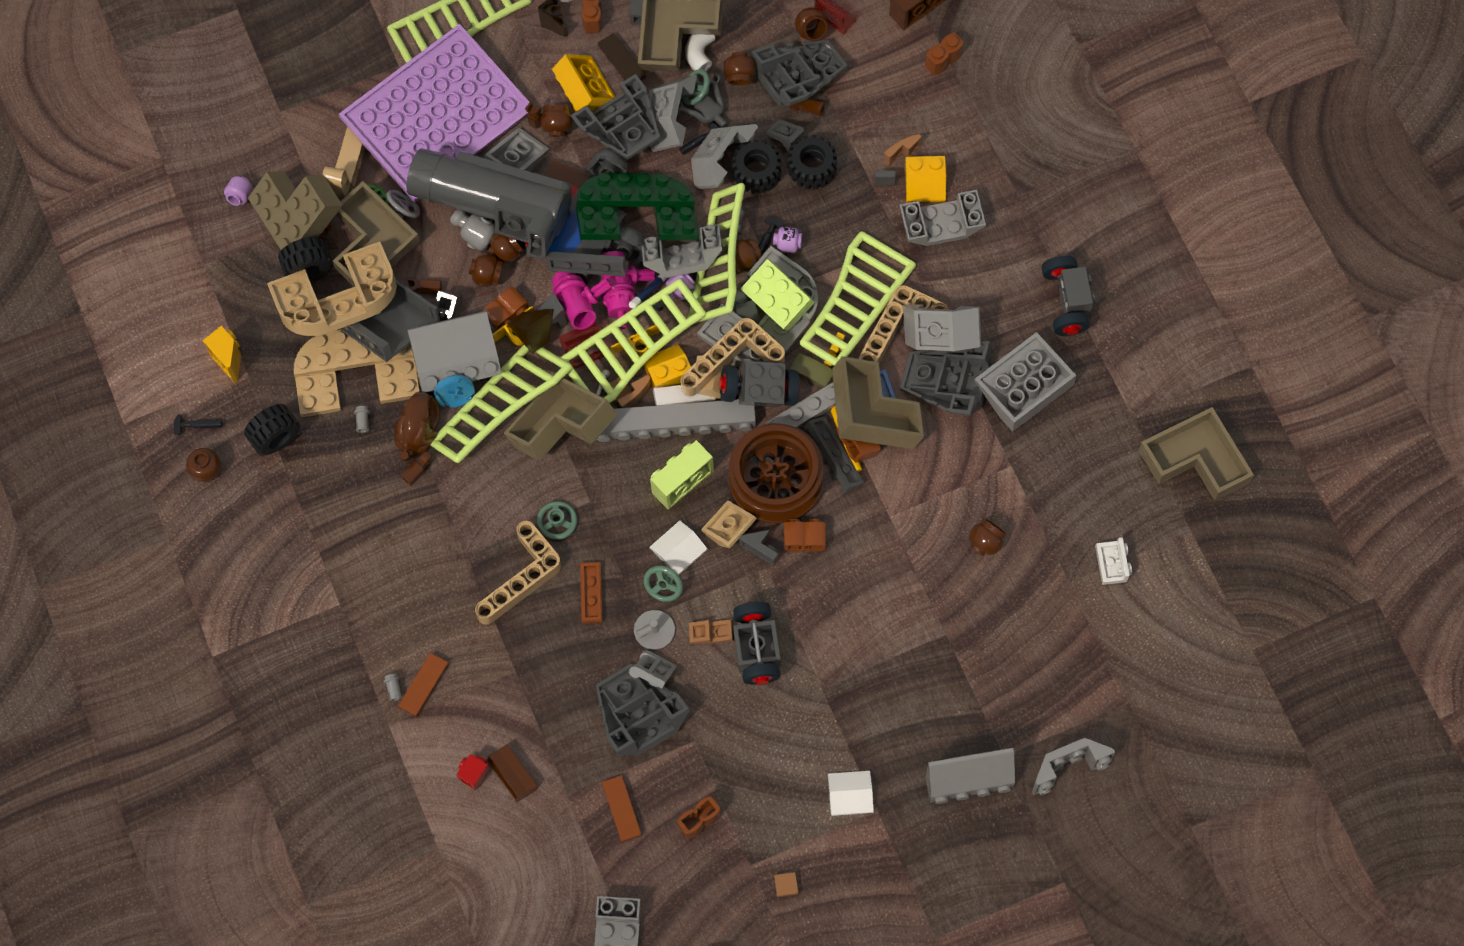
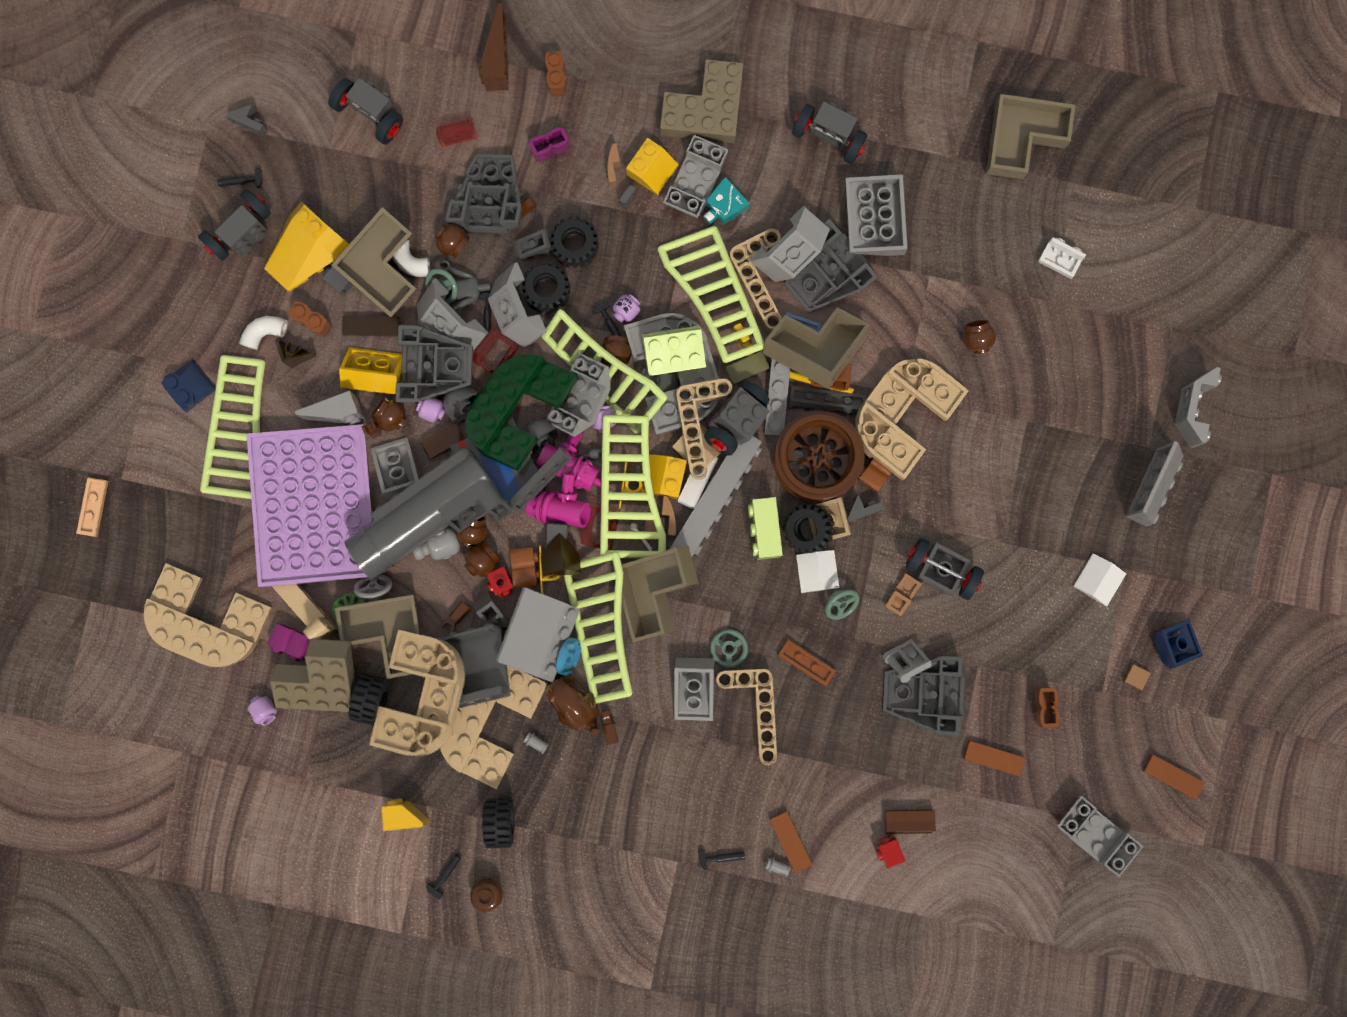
camera: 55 degrees left, 15 degrees up
(262, 100) = (212, 646): none -> tan plate
(308, 165) = (289, 641): none -> magenta brick
(356, 623) = (720, 858): none -> black piece
(478, 298) = (500, 582): none -> red brick
(500, 513) = (694, 689): none -> light grey slope
(532, 78) = (338, 409): none -> light grey slope
(584, 148) = (430, 409): none -> lavender head
(647, 291) = (592, 449): dark blue bar -> none
(654, 630) = (869, 635): light grey shield -> none
(672, 156) = (486, 347): none -> clear red tile
(703, 497) = (793, 532): none -> black tyre
(811, 24) = (454, 156): reddish brown piece -> none
(842, 897) = (1177, 644): none -> dark blue slope
(871, 501) = (889, 401): none -> tan plate
(877, 87) = (546, 145): none -> magenta brick
(939, 257) = (725, 203): none -> teal torso
(1011, 195) = (709, 115): none -> dark tan piece

